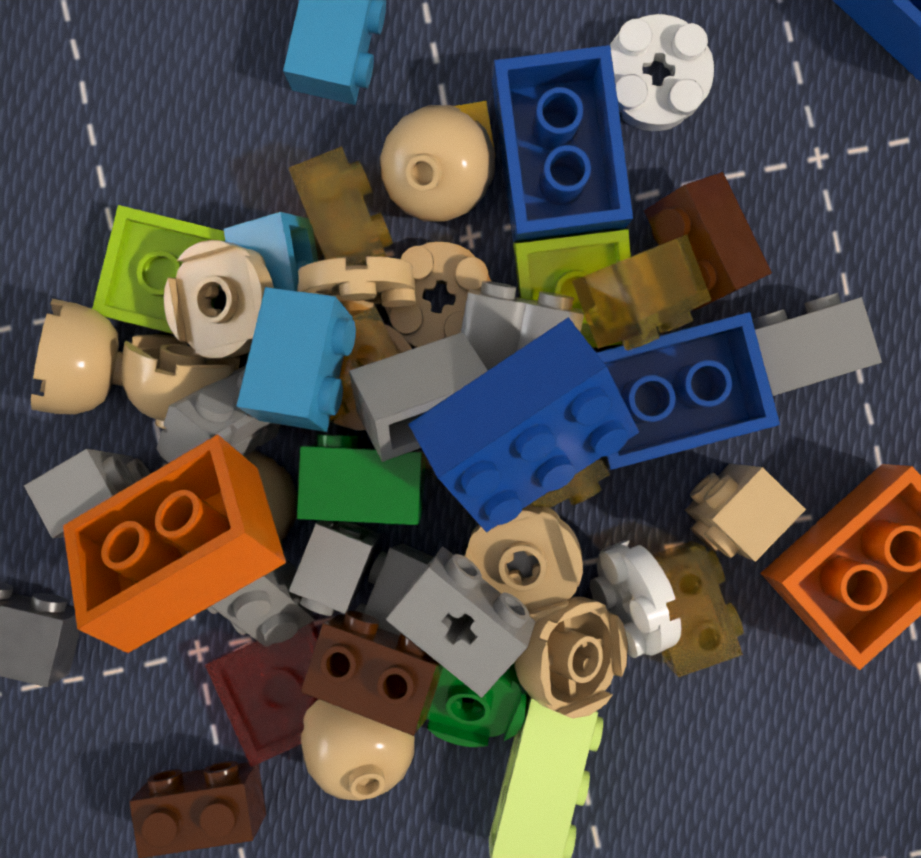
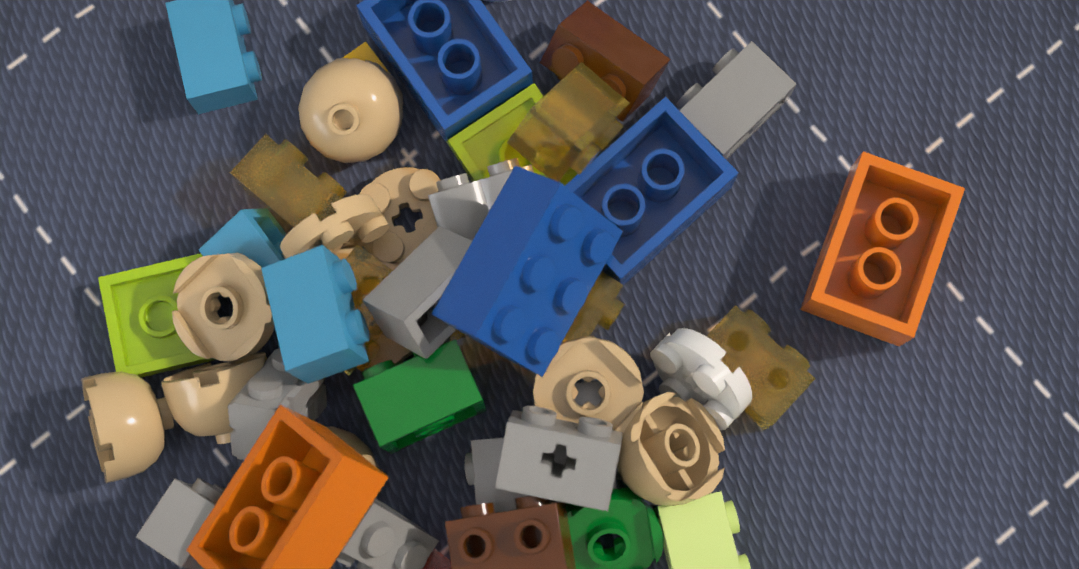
camera: 30 degrees left, 10 degrees down
(334, 566) = (431, 478): light grey brick -> none
(741, 511) = (746, 259): tan brick -> none

